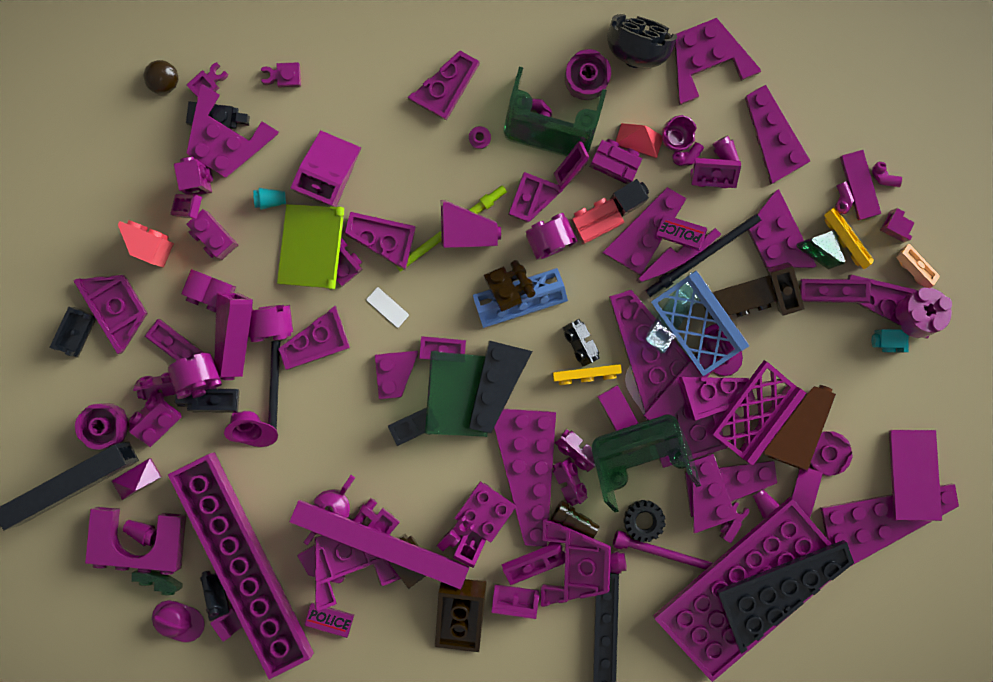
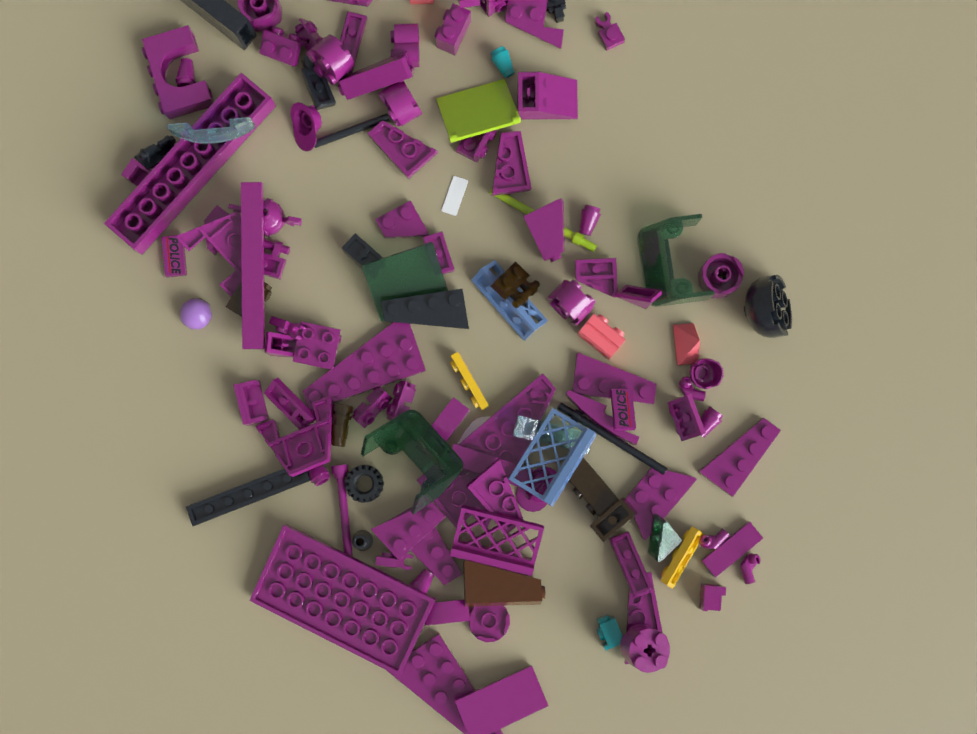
camera: 65 degrees right, 5 degrees down
(136, 479) = (228, 54): magenta slope -> none
(163, 583) = (151, 109): clear green slope -> none
(178, 621) = (124, 134): magenta piece -> none
(229, 503) = (237, 128): none -> clear light blue slope
(399, 621) = (195, 313): none -> medium lavender hair
(446, 86) = (655, 165): magenta wing -> none
(460, 616) = (221, 361): dark brown slope -> none
(472, 181) = (589, 219): none -> magenta cone
(479, 144) = (628, 216): magenta plate -> none
(541, 107) = (676, 249): magenta arm -> none
(584, 352) = (498, 359): black hinge -> none
(616, 162) = (659, 331): magenta brick -> none
(630, 197) = (633, 353): black brick -> none
(695, 543) = (367, 537): none -> black cone
(705, 48) = (788, 366): magenta wing -> none
(774, 594) = (346, 620): black wing -> none
(917, 266) = (683, 628): light nougat plate -> none

